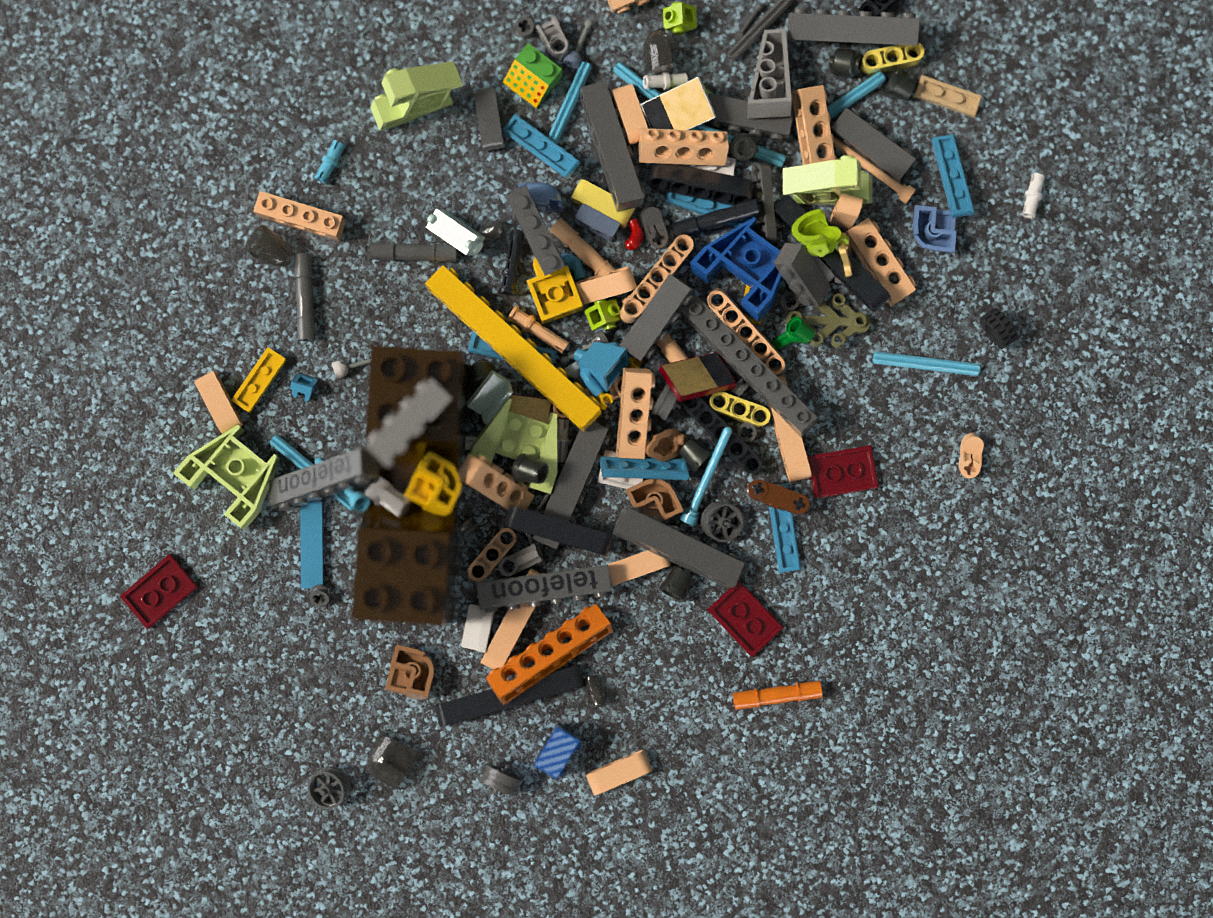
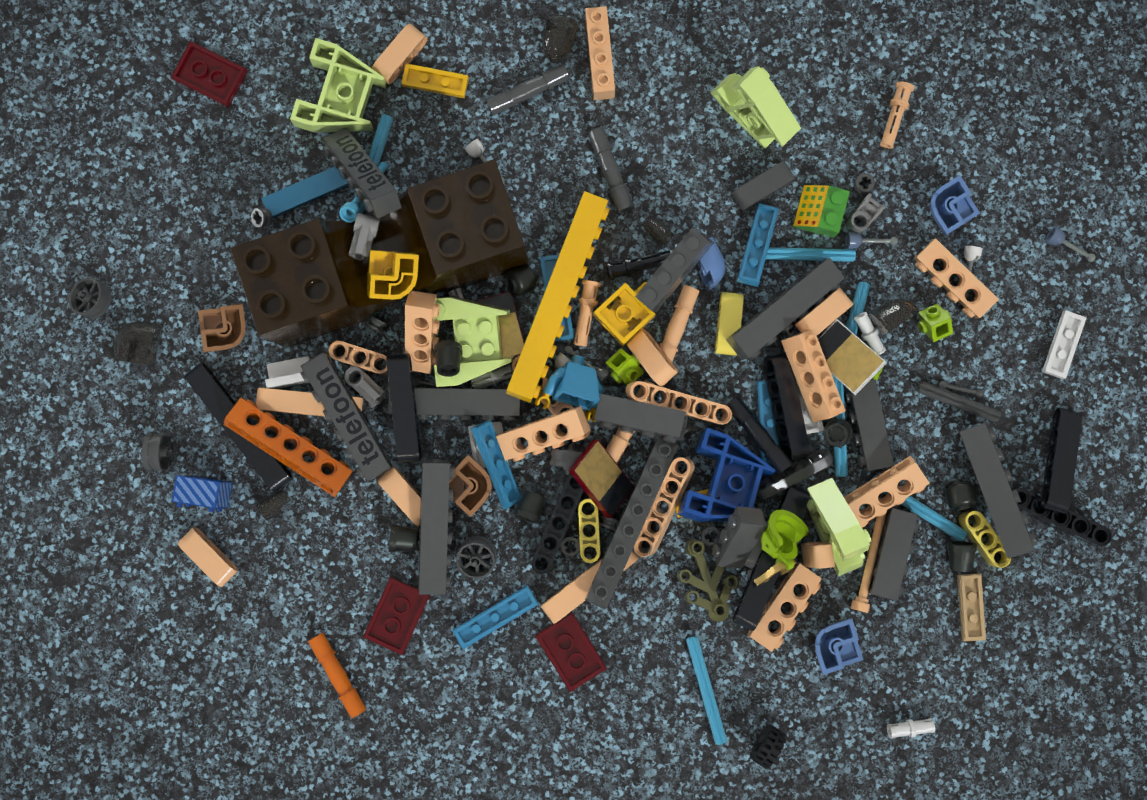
camera: 75 degrees right, 0 degrees up
(303, 384) = (446, 122): dark azure tile -> none
(330, 162) = (662, 60): medium azure pin -> none
(408, 421) = (431, 220): light grey wedge -> none
(455, 232) = (644, 199): light aqua brick -> none
(490, 396) = (504, 294): light aqua panel -> none
(574, 264) = (662, 321): dark azure arm -> none
(597, 222) = (709, 325): sand blue slope -> none
(636, 237) = (712, 368): red arm -> none
(652, 216) = (735, 373): dark grey piece -> none
(666, 445) = (527, 475): medium nougat arm -> none
(690, 516) = (472, 525): medium azure piece -> none
(771, 83) = (907, 434): light grey wedge -> none
(778, 496) = (520, 601): reddish brown piece -> none
(796, 331) = (684, 553): green axle -> none
(952, 176) = (896, 643): dark azure tile -> none
(970, 455) = (645, 766): light nougat piece -> none

